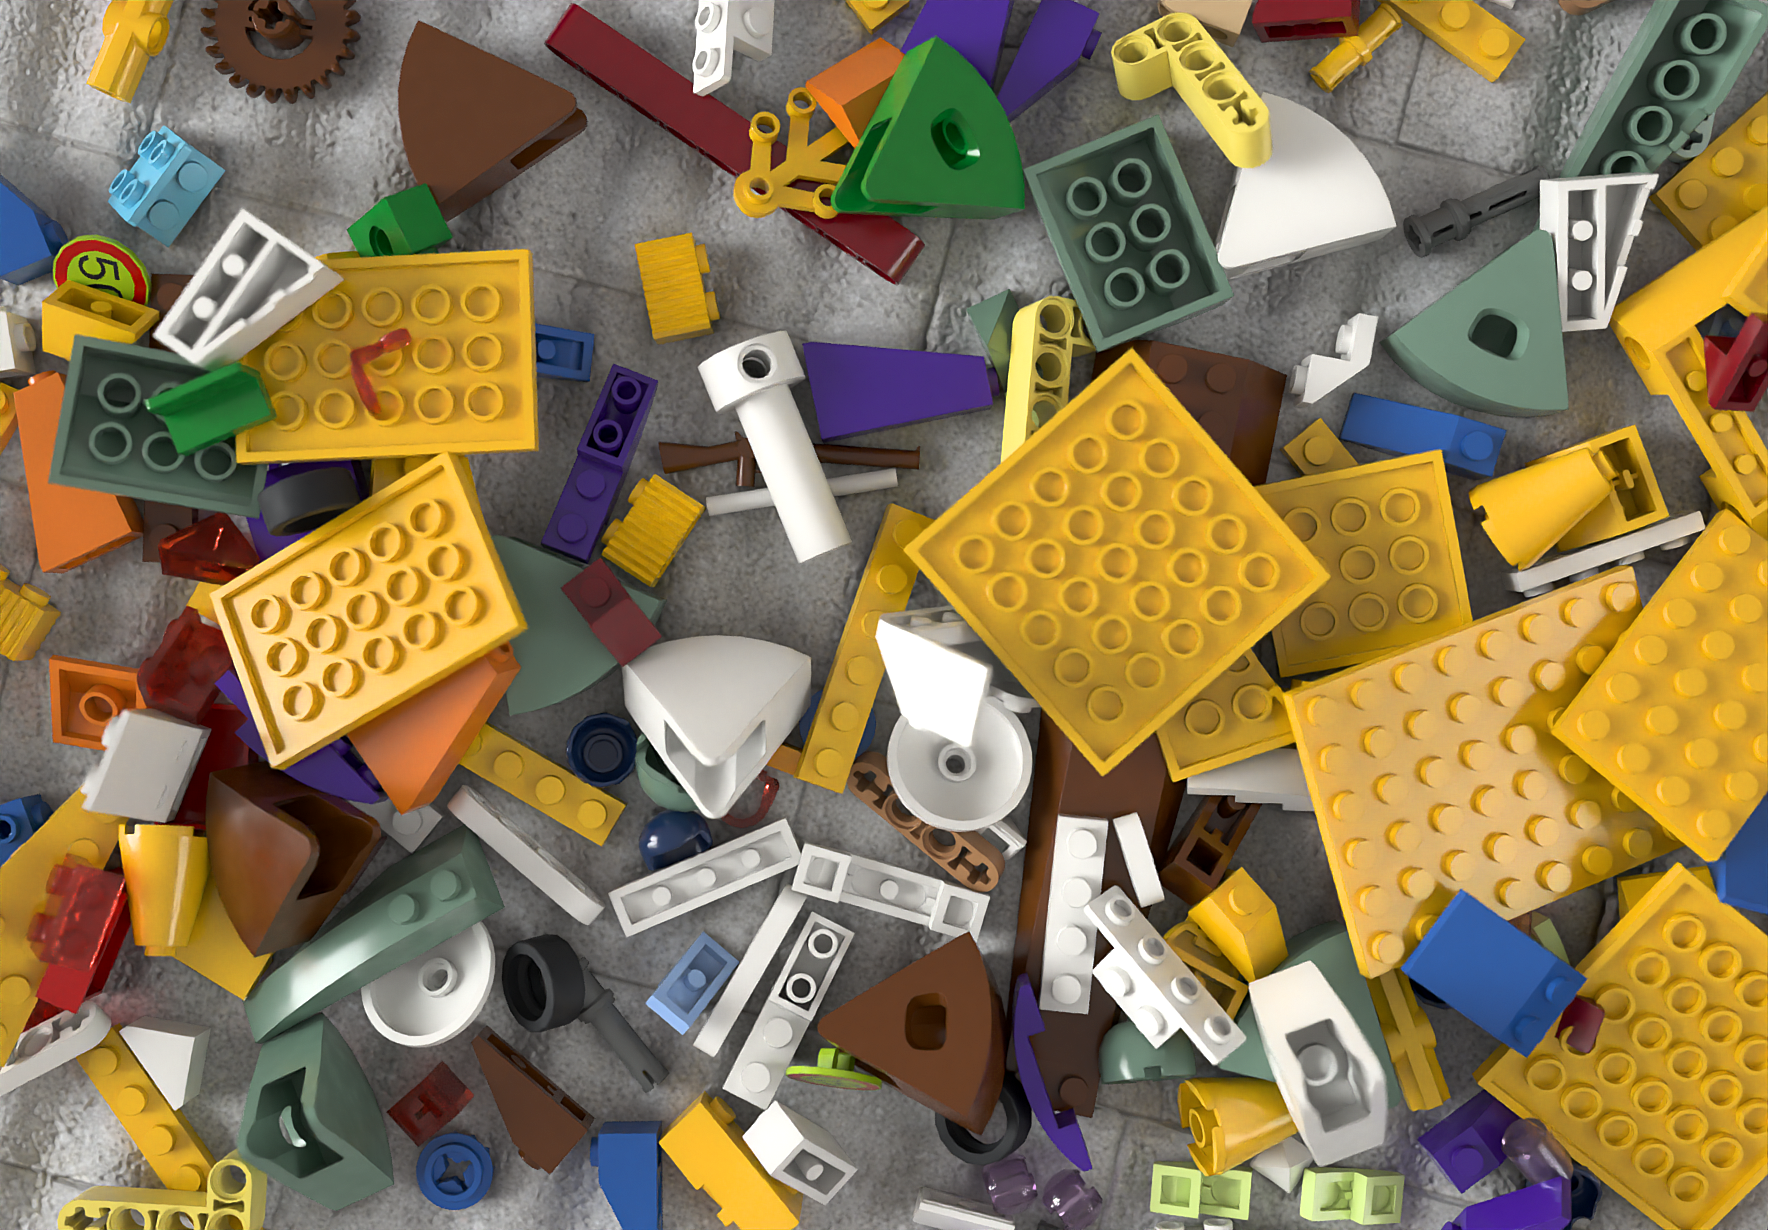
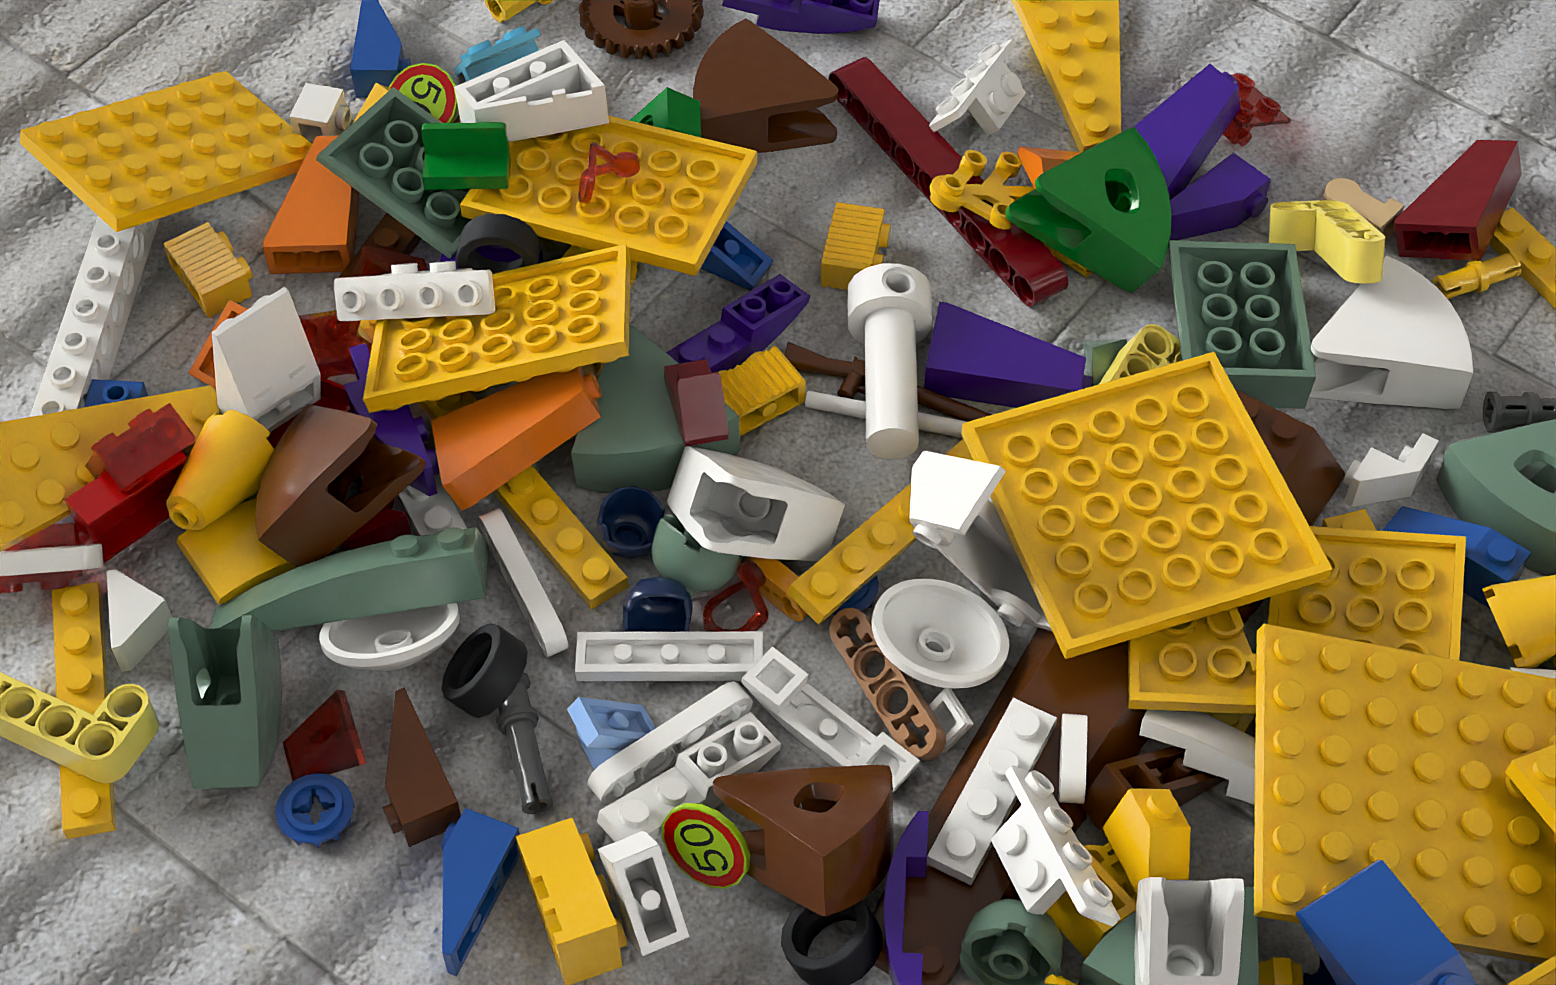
camera: 20 degrees right, 35 degrees down
(252, 593) = (415, 293): none -> white bracket

